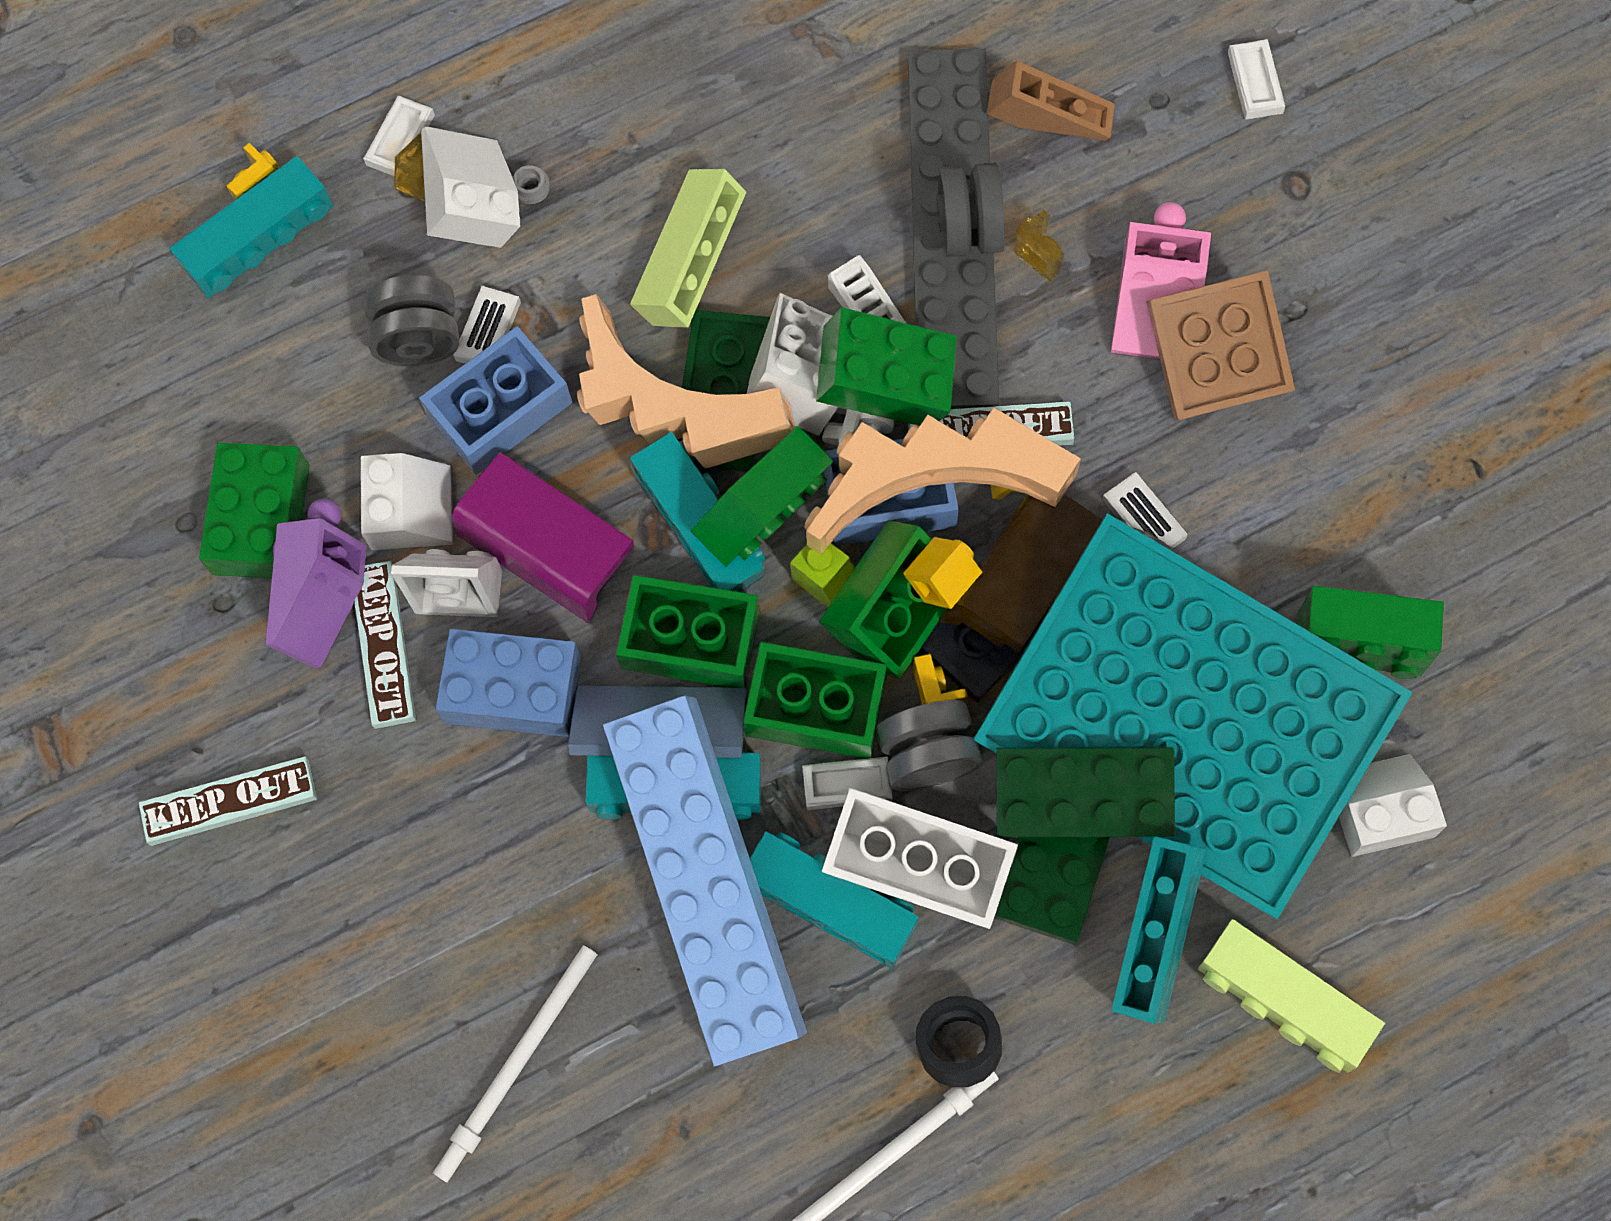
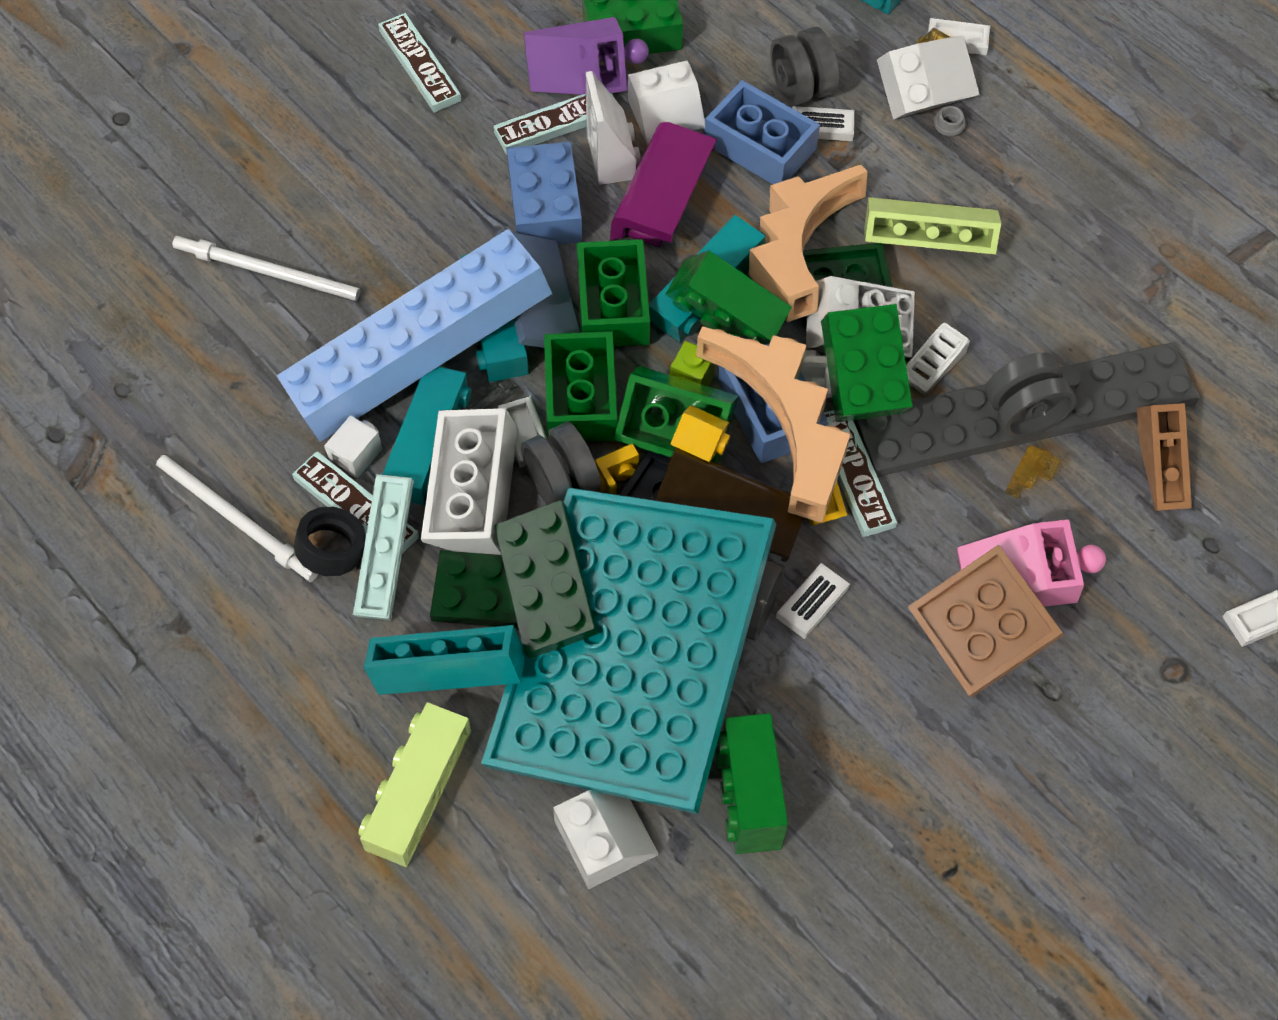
camera: 70 degrees right, 10 degrees down
(825, 990) = (354, 446): none -> white brick
(902, 1006) = (339, 490): none -> tile
(981, 978) = (383, 547): none -> light aqua tile

